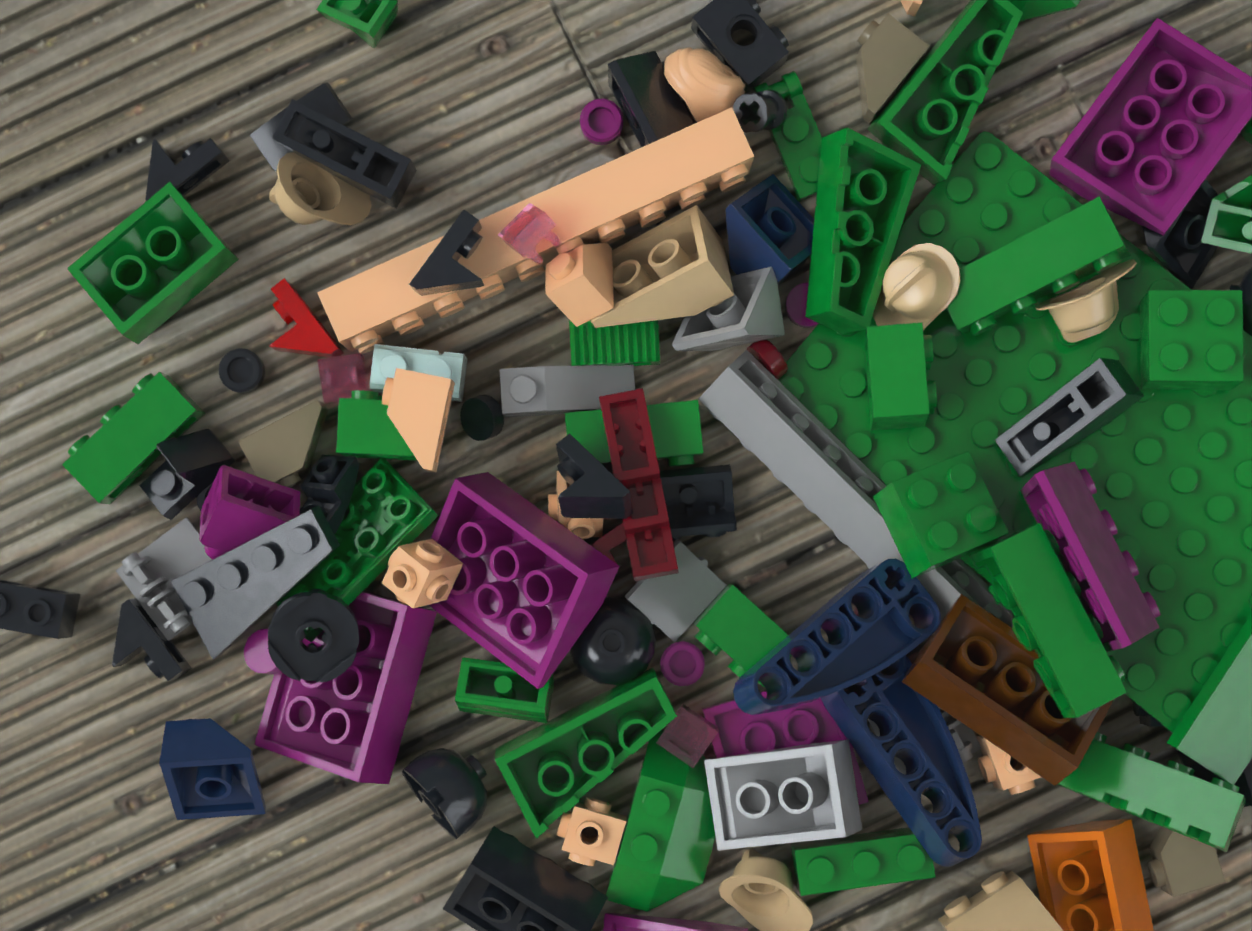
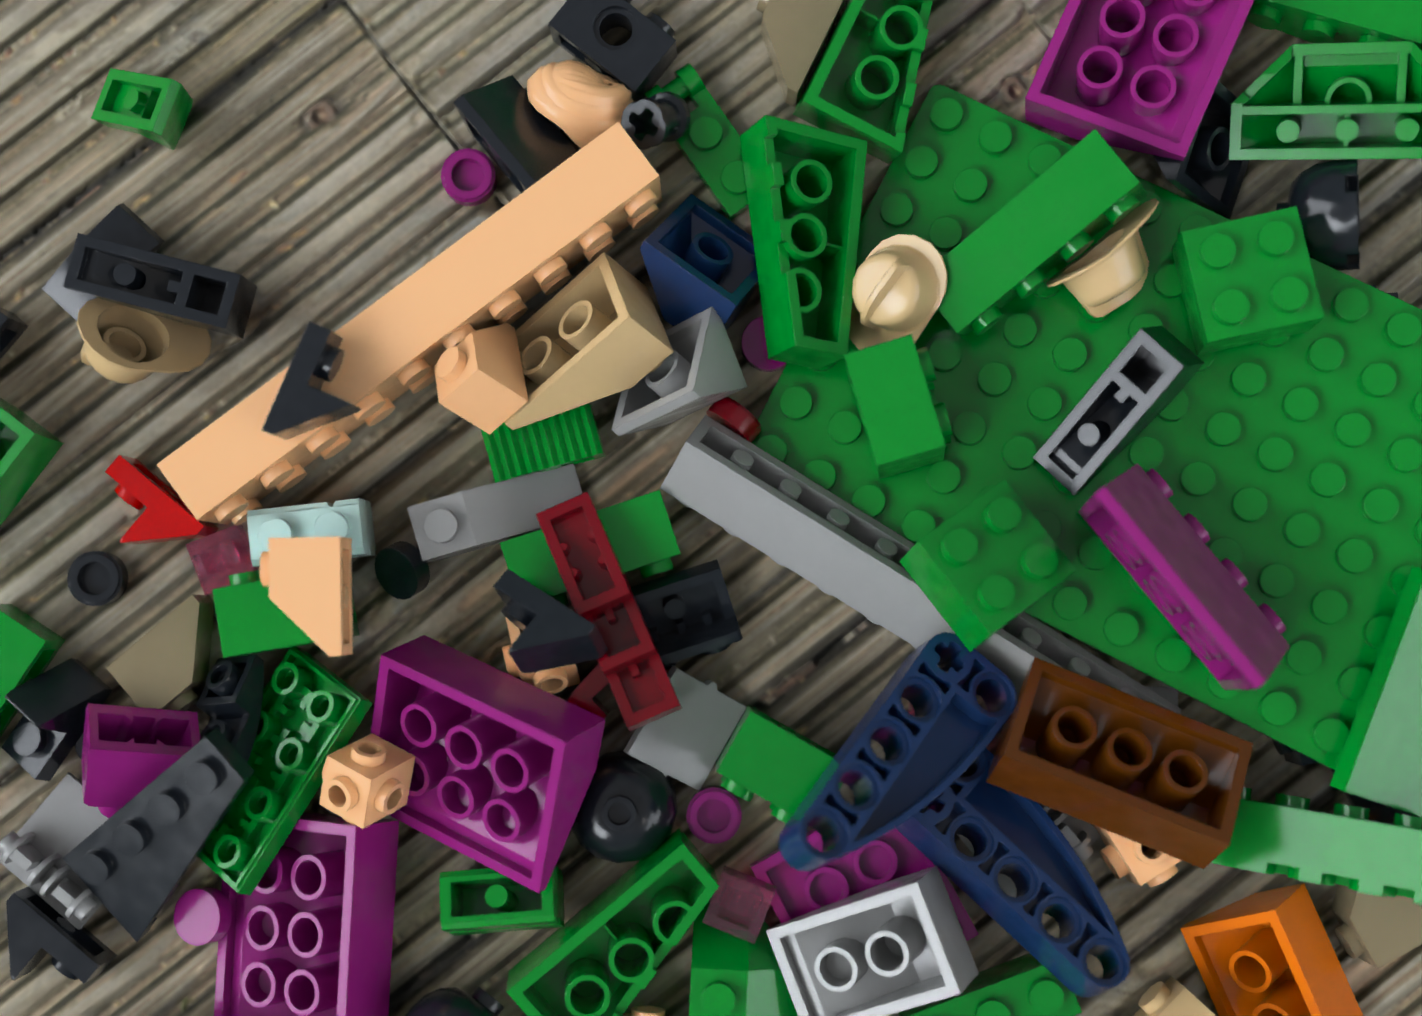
camera: 10 degrees left, 0 degrees up
(312, 662) = (249, 923): black plate -> none
(527, 231) = (397, 329): clear pink tile -> none
(1052, 620) = (1156, 668): green wedge -> none

